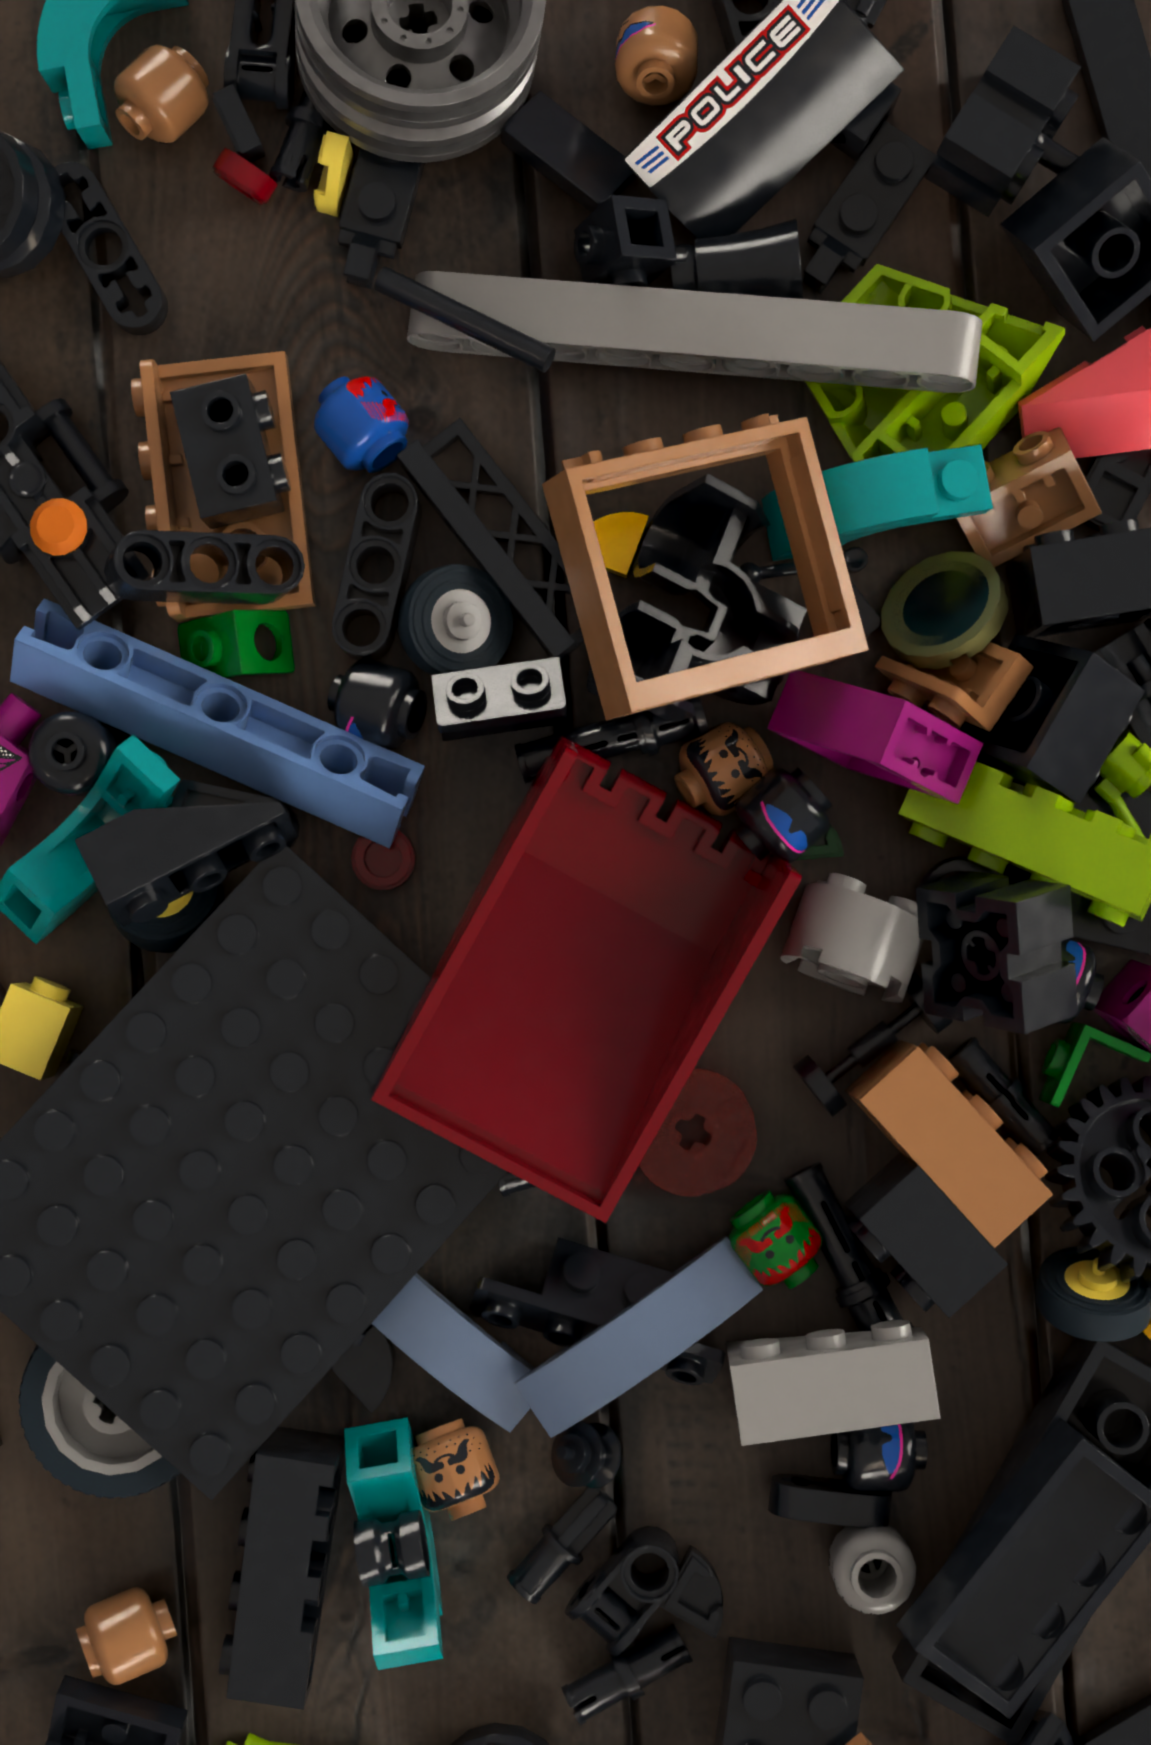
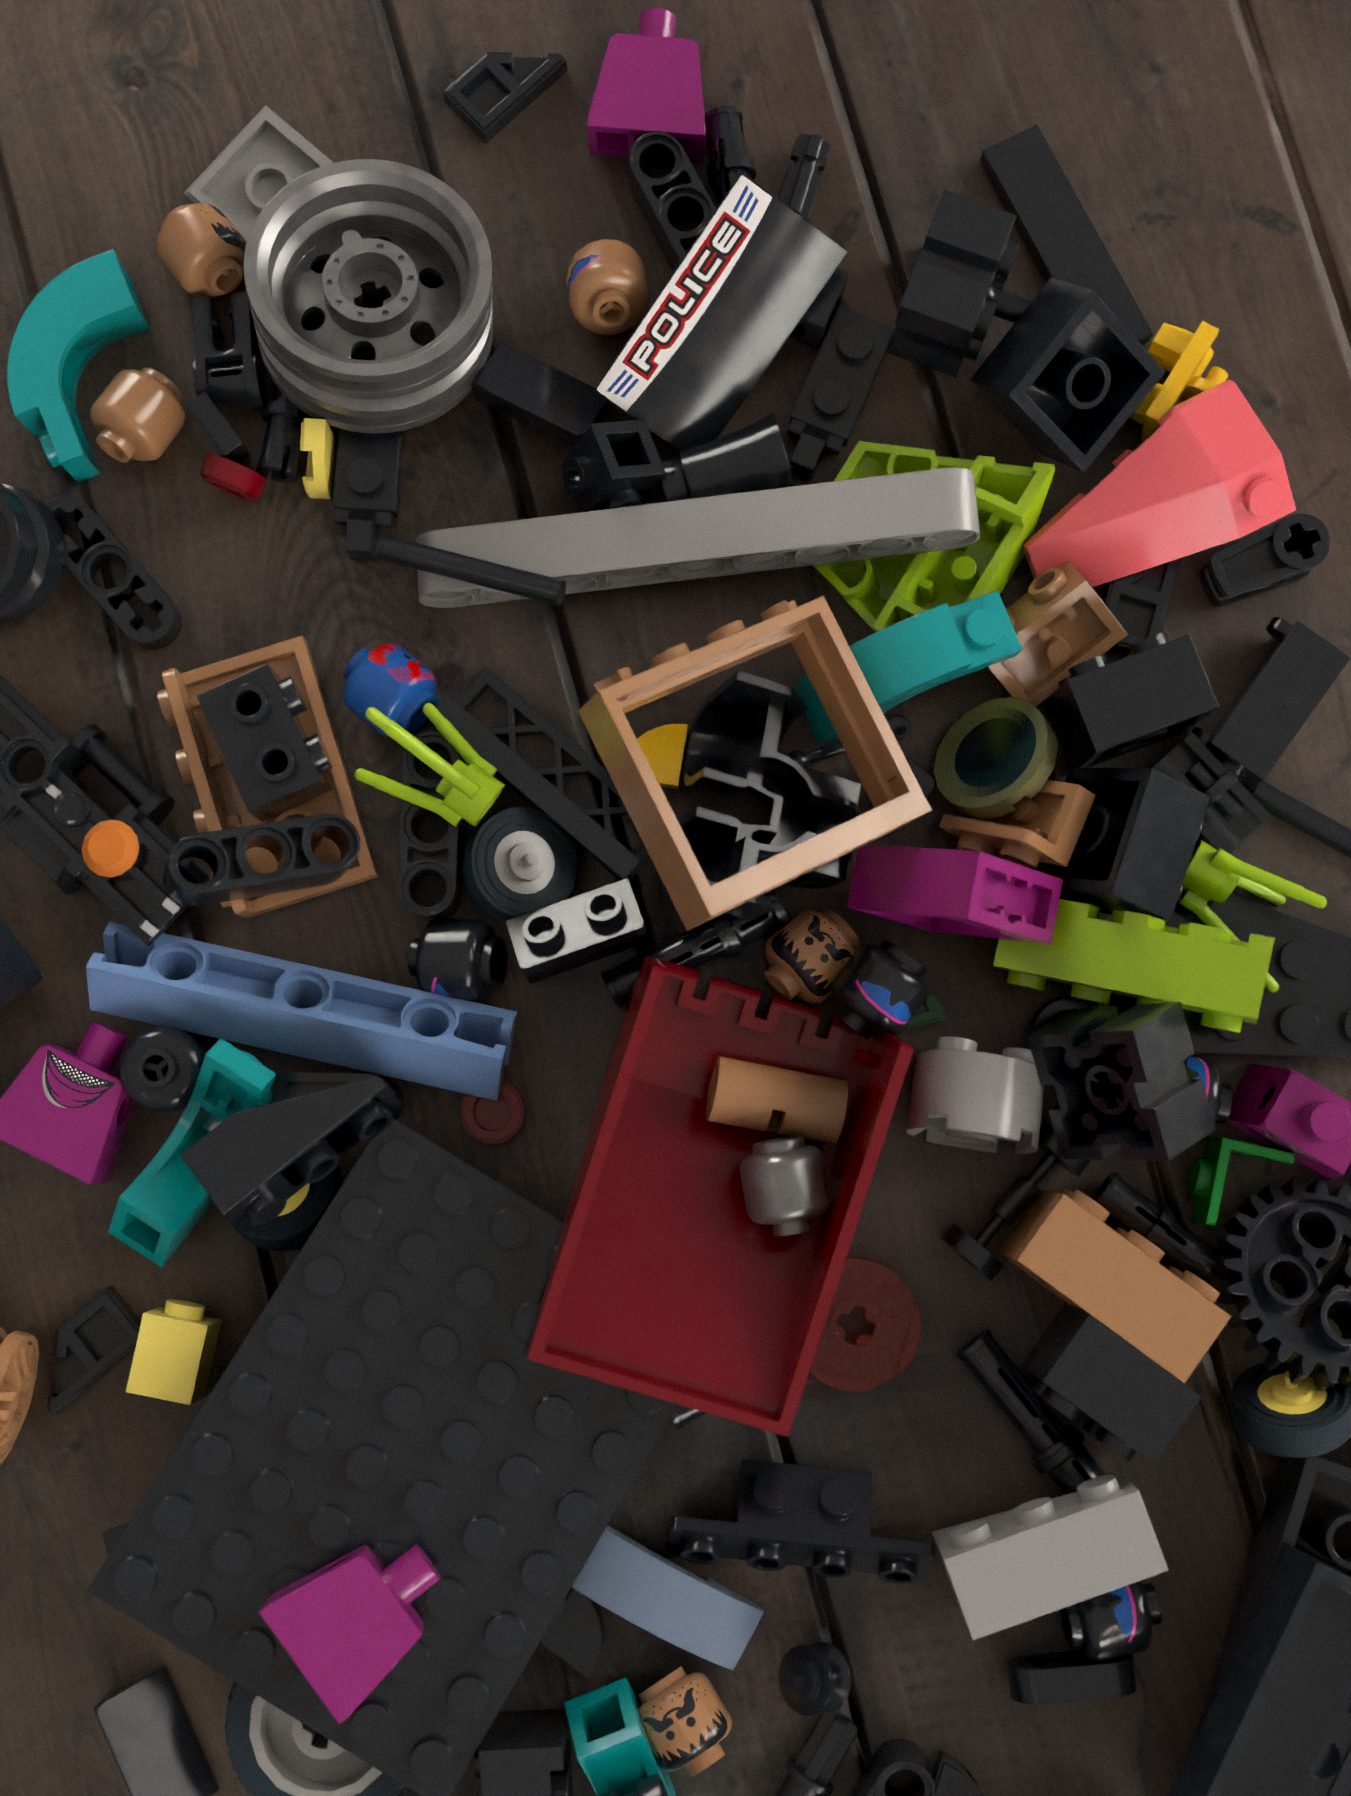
camera: 10 degrees left, 5 degrees down
(158, 1311) = (351, 1622): none -> magenta torso
(227, 645) = (298, 930): green bracket -> none
(418, 537) = (466, 789): none -> lime plant
(639, 1338) = (845, 1548): sand blue slope -> none
(652, 984) = (785, 1184): none -> flat silver head
(660, 902) = (776, 1100): none -> medium nougat pin
(775, 1239) = (960, 1418): green head -> none
(881, 1584) = (1130, 1739): light grey head -> none

